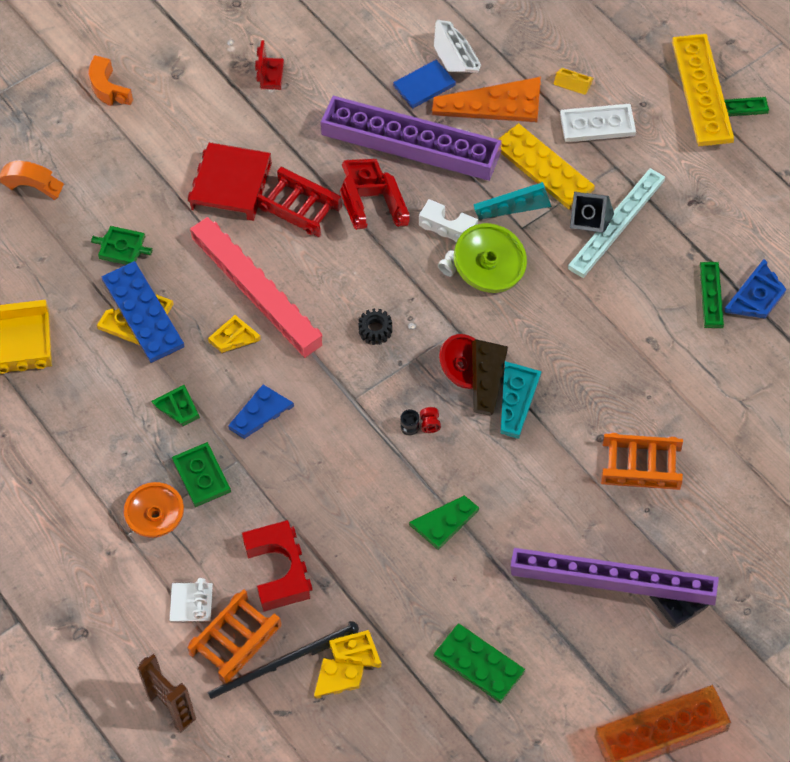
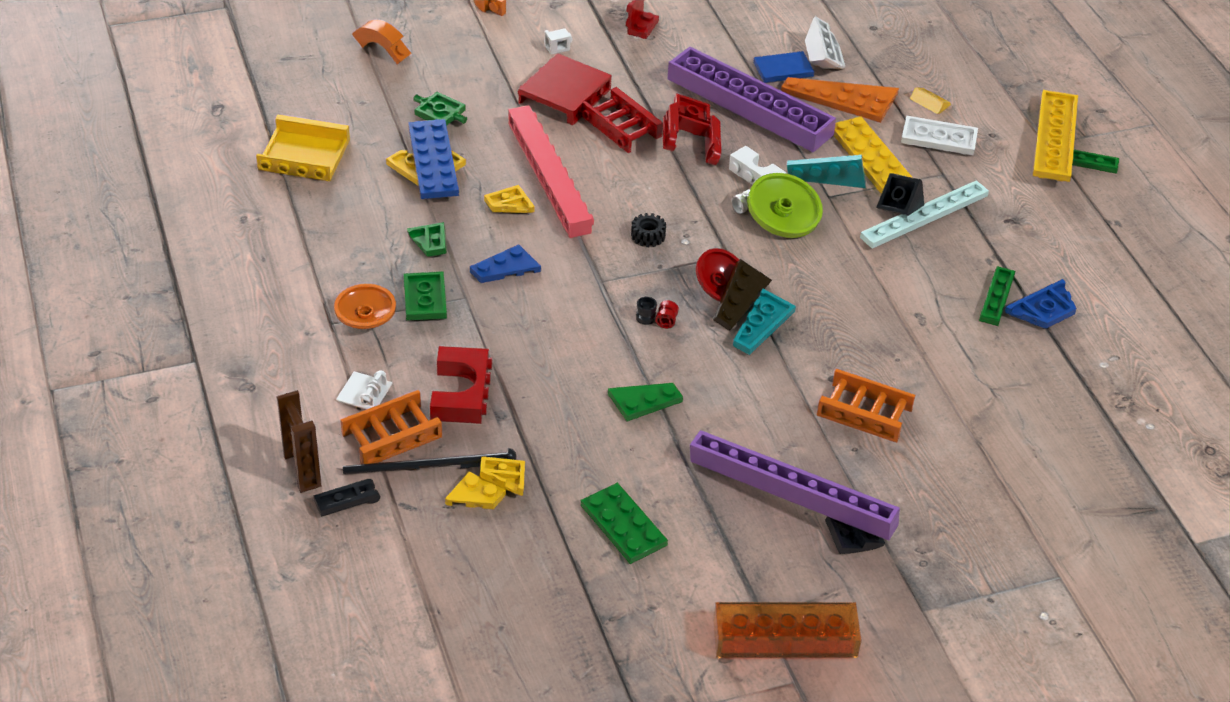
camera: 15 degrees right, 15 degrees down
(199, 123) = (557, 41): none -> white brick
(225, 725) = (346, 497): none -> black plate

